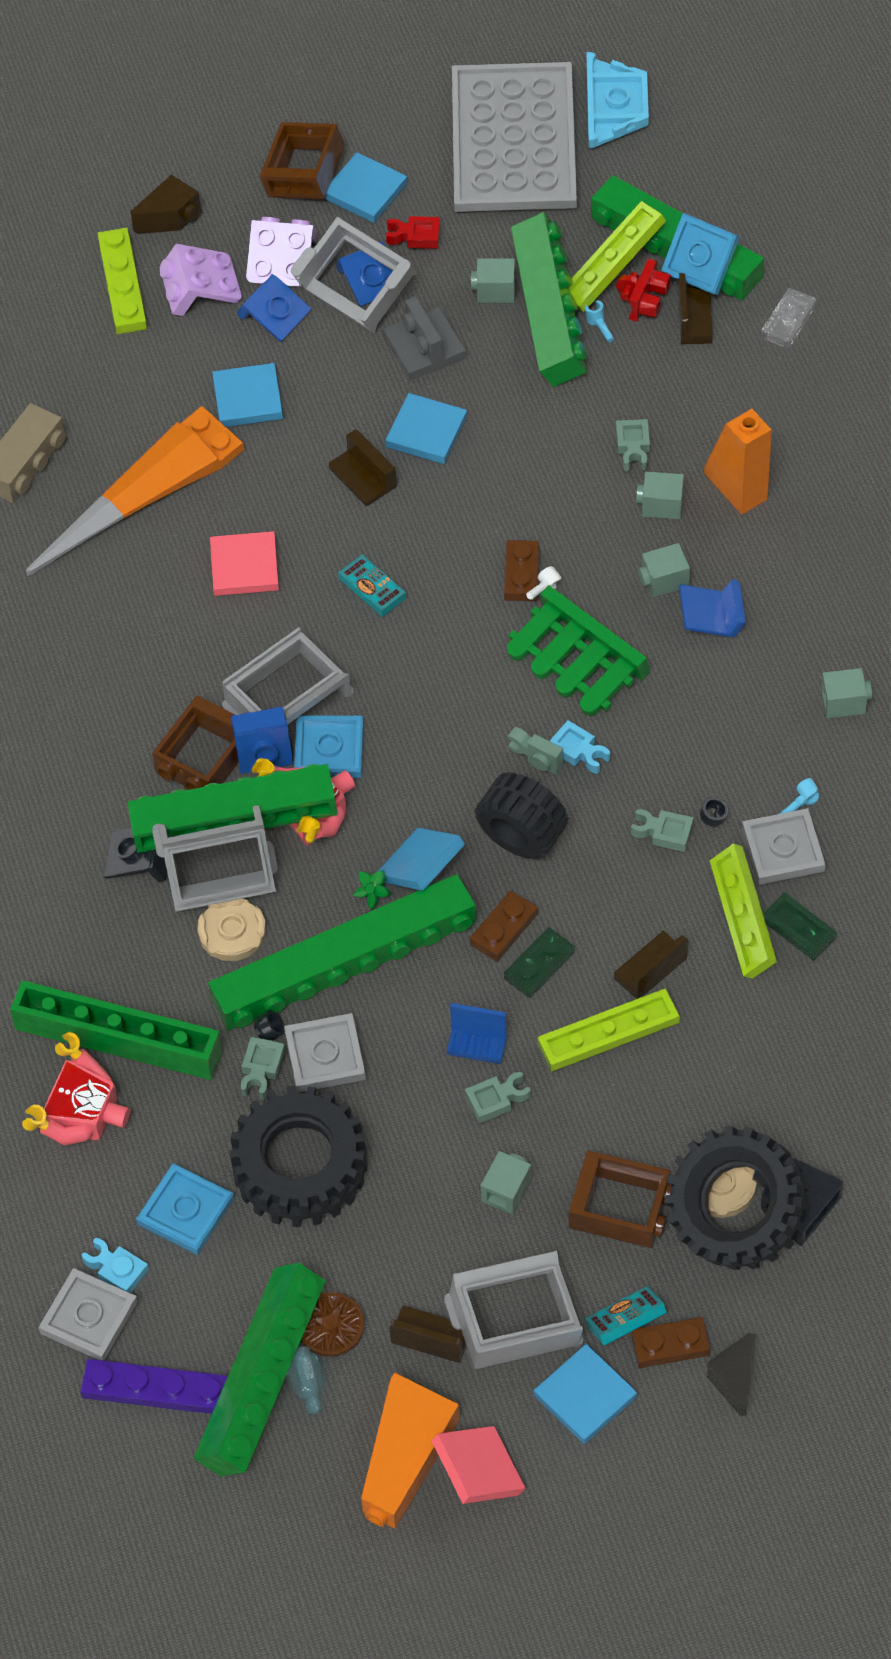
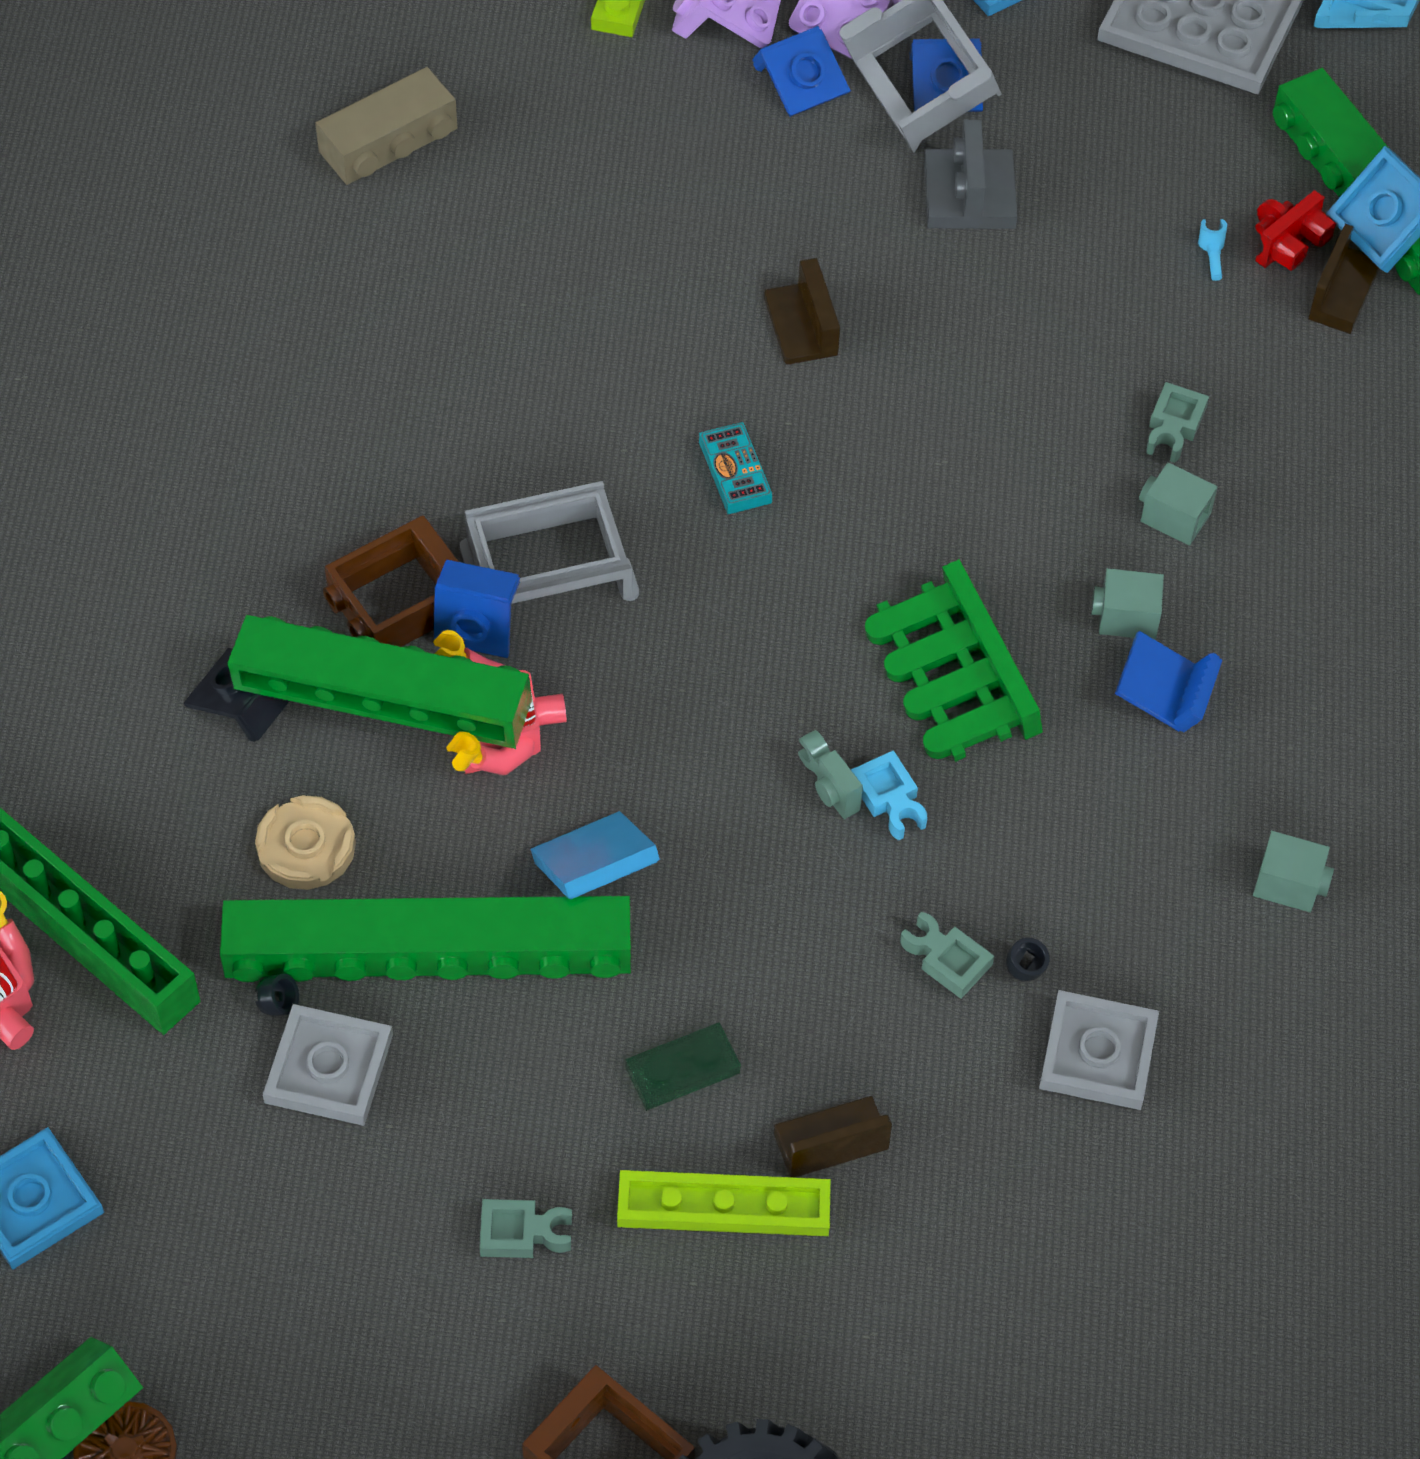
camera: 20 degrees right, 0 degrees up
(177, 459) = (575, 210): orange plate -> none
(225, 888) = (317, 783): light grey piece -> none
(244, 563) = (587, 373): coral tile -> none
(247, 395) = (709, 165): dark azure tile -> none
(261, 1062) = (238, 1040): sand green plate -> none
(306, 1196) = (225, 1254): black tyre -> none
(330, 742) = (567, 652): dark azure tile -> none
(372, 887) = (514, 866): green plant -> none
(418, 232) = (1032, 48): red plate -> none
(426, 428) = (914, 295): dark azure tile -> none
(477, 1033) = (541, 1130): blue piece -> none
(494, 280) = (1101, 143): sand green brick -> none
(503, 926) = (662, 994): reddish brown plate -> none
(506, 1182) = (468, 1357): sand green brick -> none
(521, 569) = (941, 527): reddish brown plate -> none
(521, 815) = (755, 853): black tyre -> none
(547, 577) = (970, 552): white hand -> none
(549, 299) = (1157, 193): brick -> none
(615, 254) = (1269, 169): lime plate -> none
(742, 461) = (1302, 498): orange slope -> none
(743, 911) = (995, 1117): lime plate -> none
(799, 926) = (1063, 1172): clear green plate -> none
(808, 795) = (1172, 991): medium azure hand -> none

